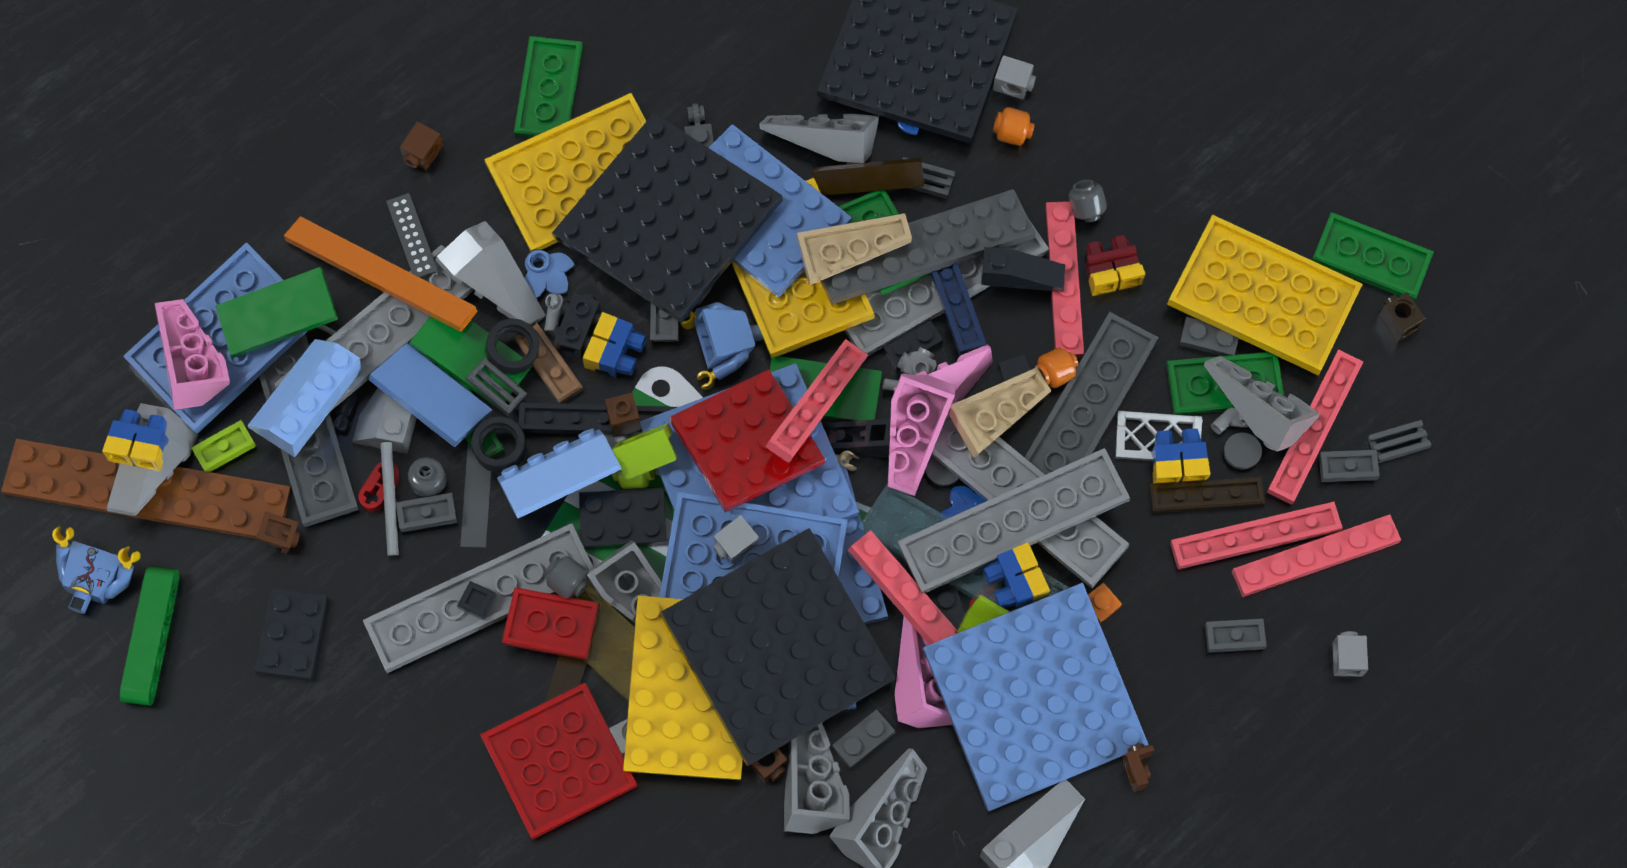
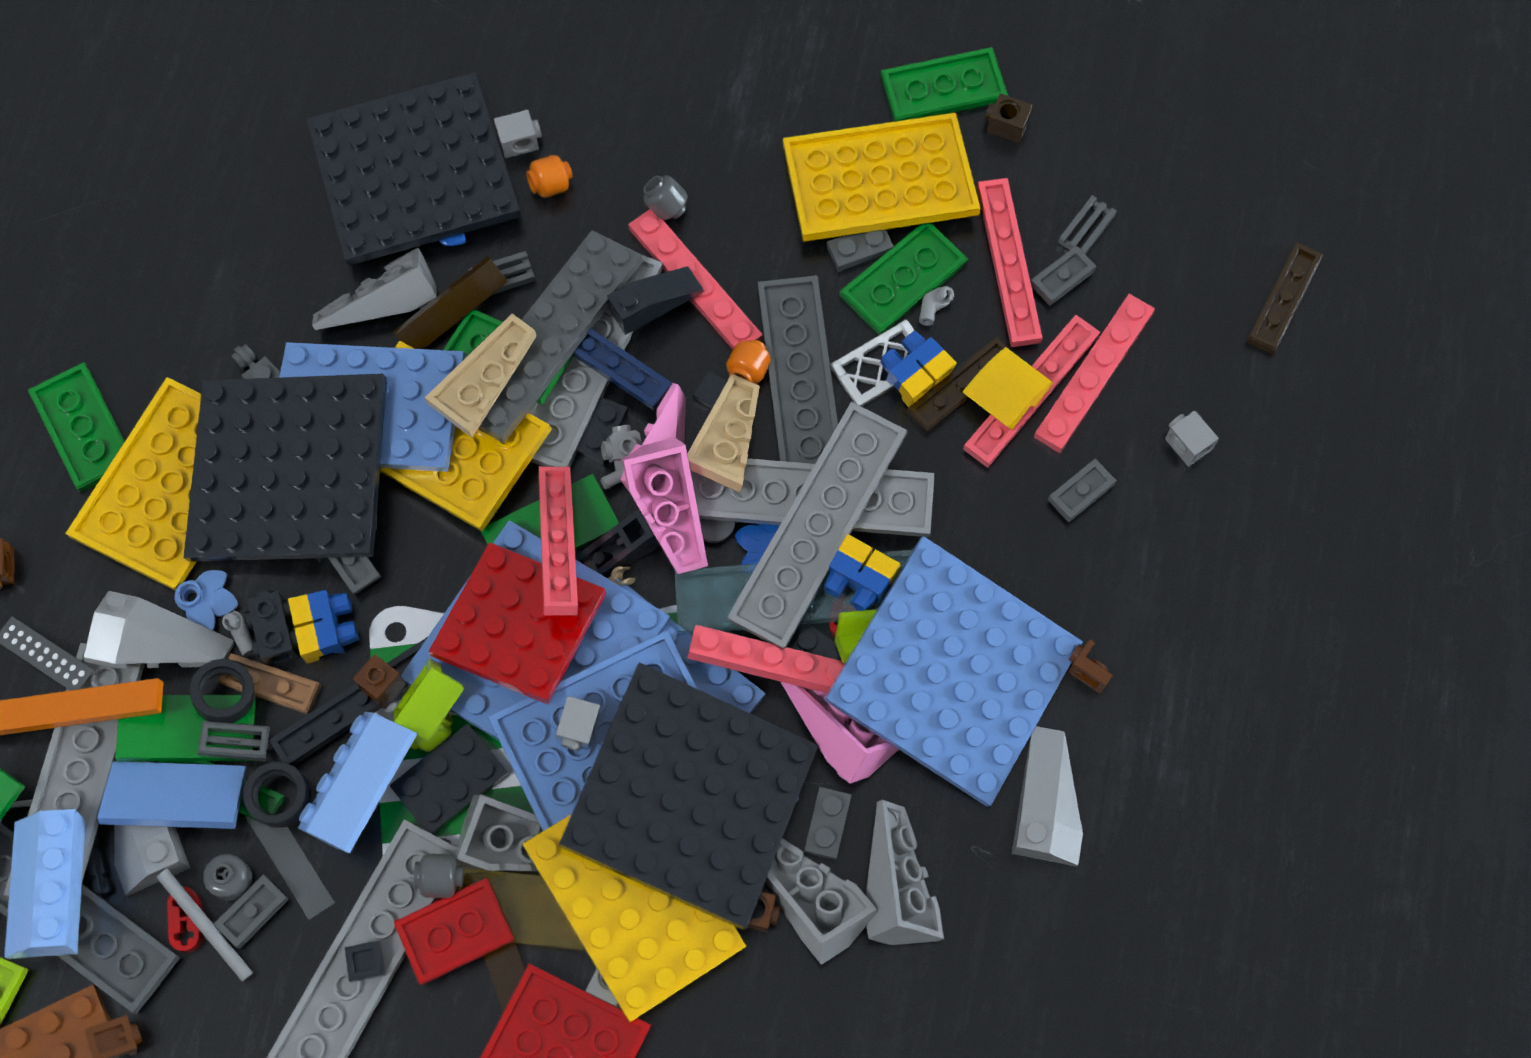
camera: 35 degrees left, 0 degrees up
(723, 338) = (423, 544): medium blue torso -> none
(1103, 602) = (947, 539): orange plate -> none
(1114, 267) = (731, 242): hips -> none
(1235, 519) = (1007, 387): none -> yellow slope
(1242, 451) = (963, 325): dark grey piece -> none
(1269, 414) = (965, 276): light grey wedge -> none
(1512, 602) = (1284, 298): none -> dark brown tile

